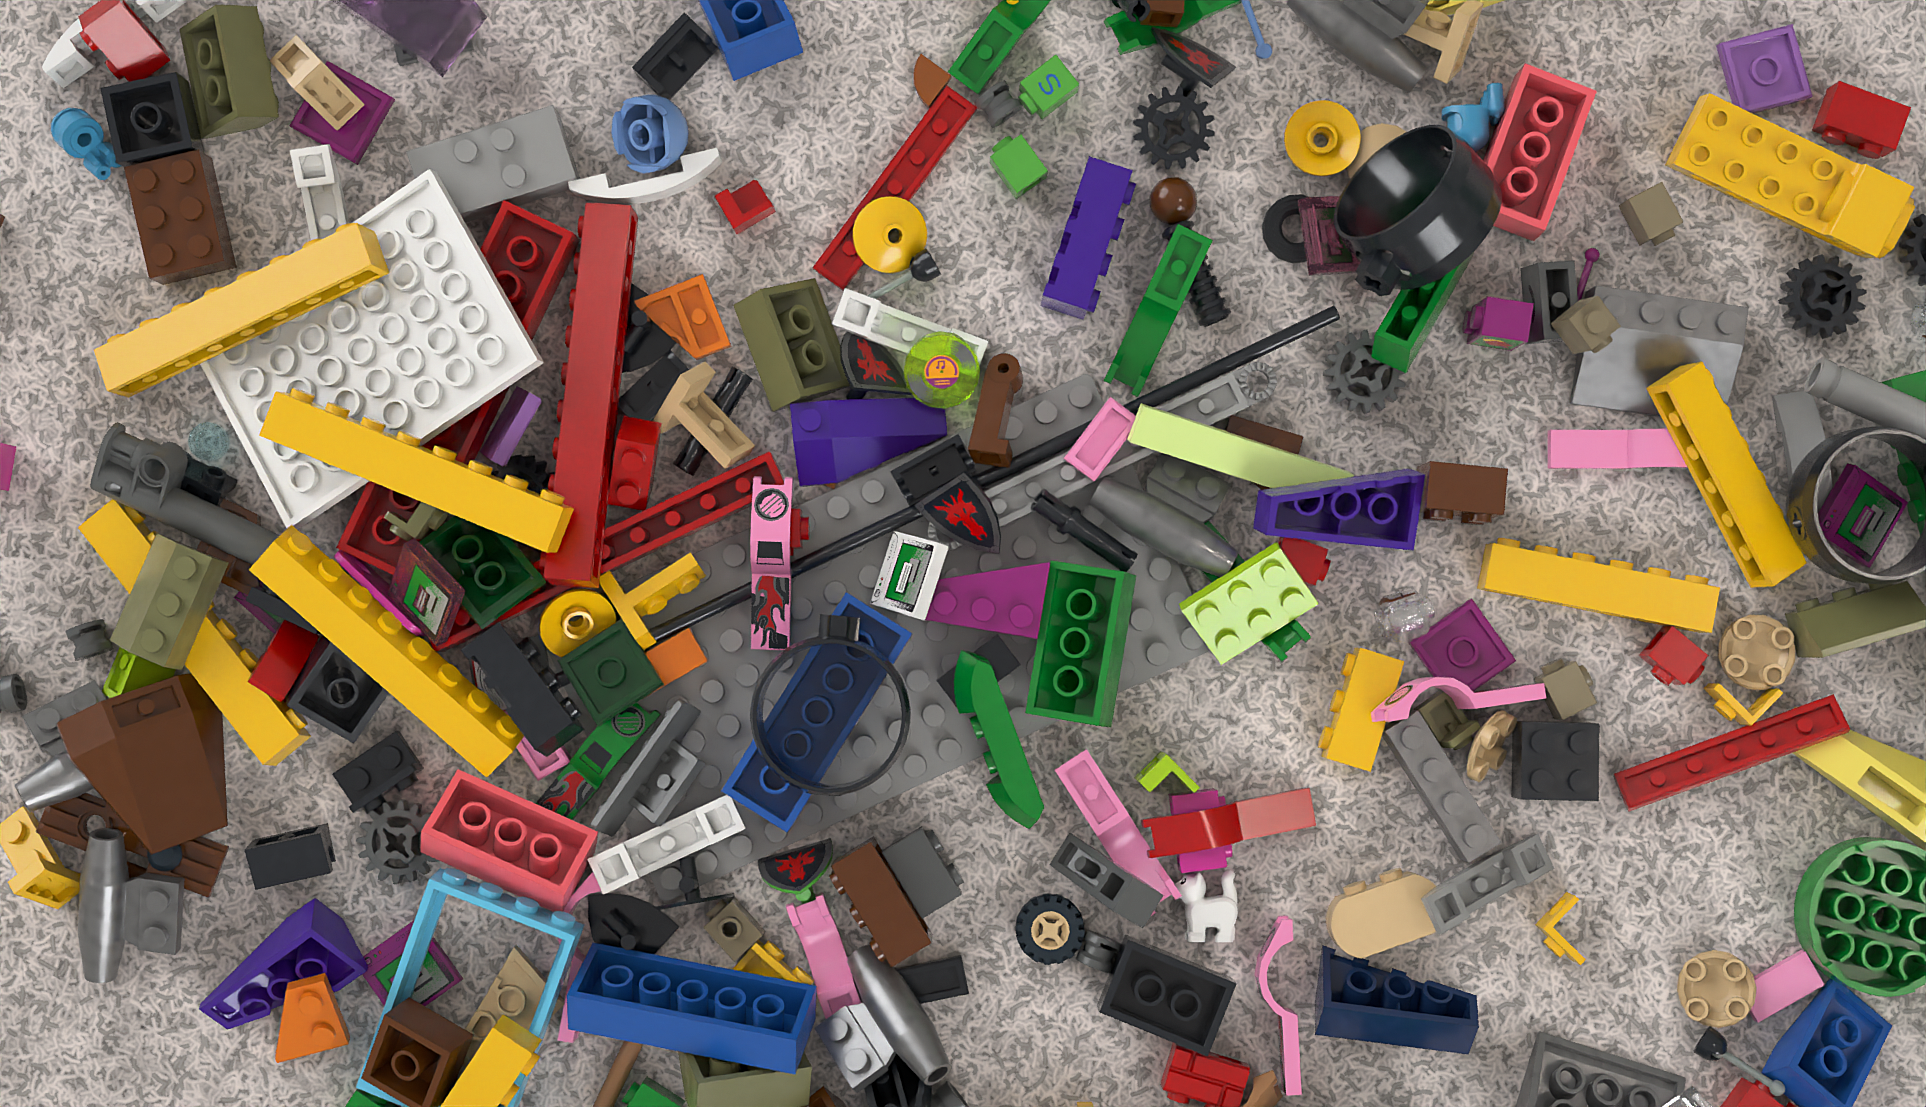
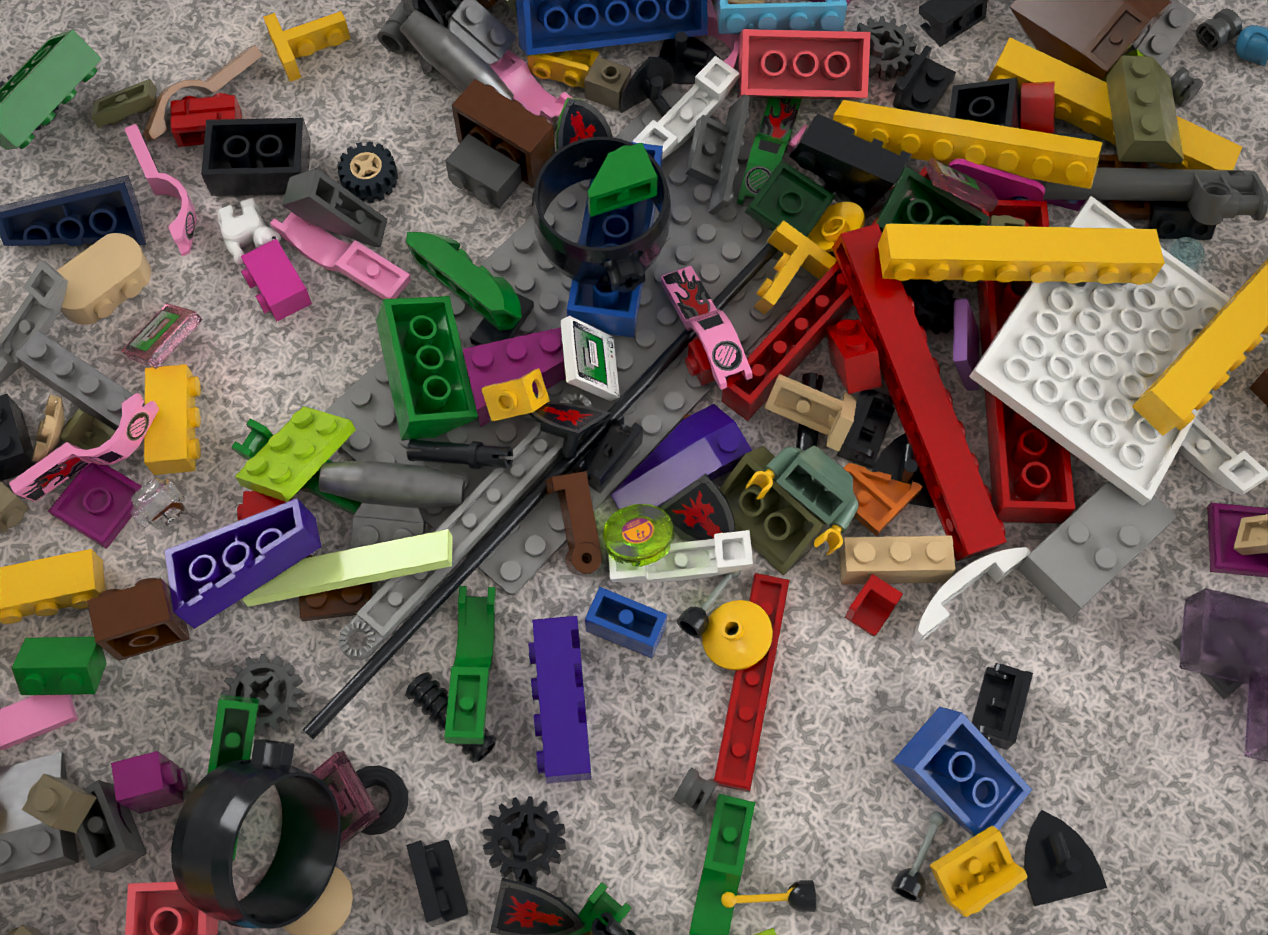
camera: 155 degrees right, 20 degrees down
(650, 133) = (984, 626): medium blue cylinder -> none
(676, 657) = (745, 240): orange tile -> none
(700, 237) = (897, 559): none -> tan brick
(745, 334) = (817, 484): none -> sand green torso
(802, 710) = (622, 180): none -> green slope
(929, 80) = (768, 789): dark orange tile -> none
(936, 979) = (437, 112): black tile -> none
(993, 286) = (625, 622): none -> blue brick
(1006, 550) = (515, 396): none -> yellow bracket
(1017, 165) = (653, 742): bright green brick -> none
(1047, 88) = (657, 825): bright green brick -> none
(1096, 955) = (325, 162): dark grey wheel -> none
(1101, 439) = (475, 529): bright pink tile -> none
(1158, 769) = (318, 305): lime panel -> none
(1173, 200) = (497, 773): reddish brown piece -> none
(1230, 823) = (242, 299): red piece -> none
(1267, 125) = (437, 882): none -> black bracket
(1335, 125) = (361, 886): yellow dish -> none
(1341, 809) = (162, 335): none -> clear pink tile
(1550, 480) = (59, 666): none -> green brick
(1591, 256) = (81, 897): magenta hinge -> none

